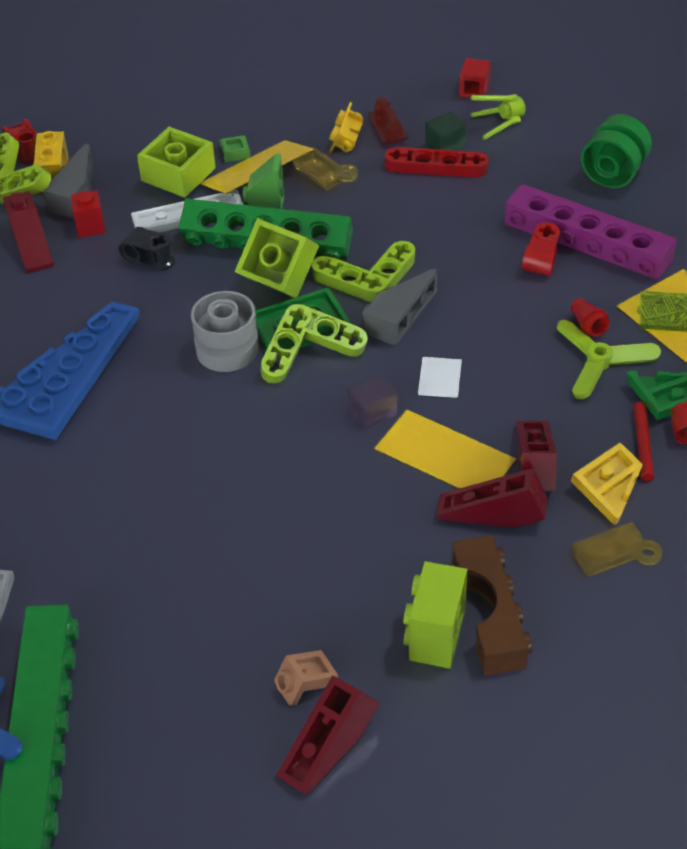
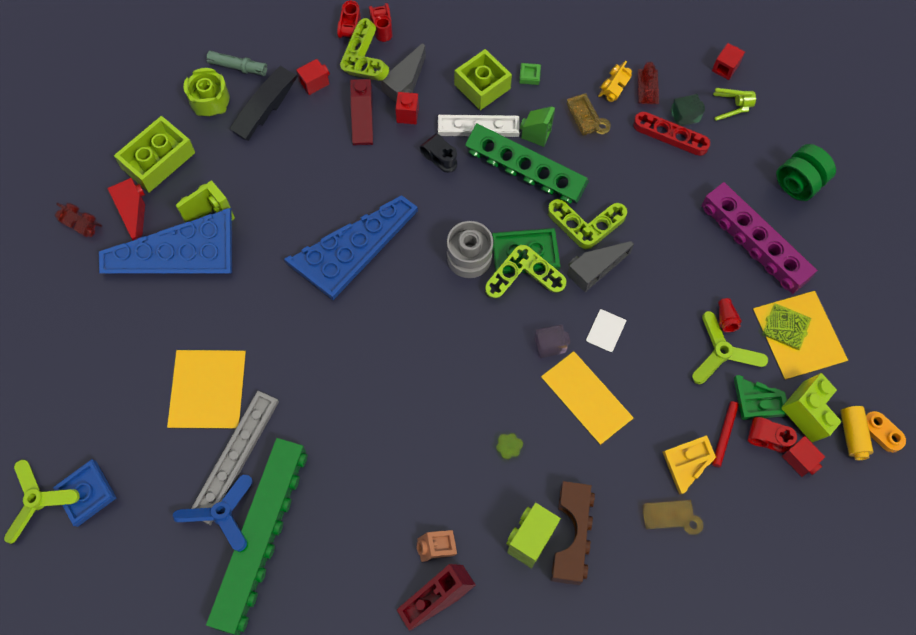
camera: 15 degrees right, 20 degrees up
(51, 152) = (395, 46): yellow brick -> none
(240, 173) = (538, 97): yellow piece -> none
(276, 258) = (524, 197): lime brick -> none
(362, 533) = (515, 443): none -> clear neon green plant
(496, 502) = (605, 454): dark red slope -> none
(537, 451) = (646, 423): dark red slope -> none
(542, 249) = (716, 246): red piece -> none

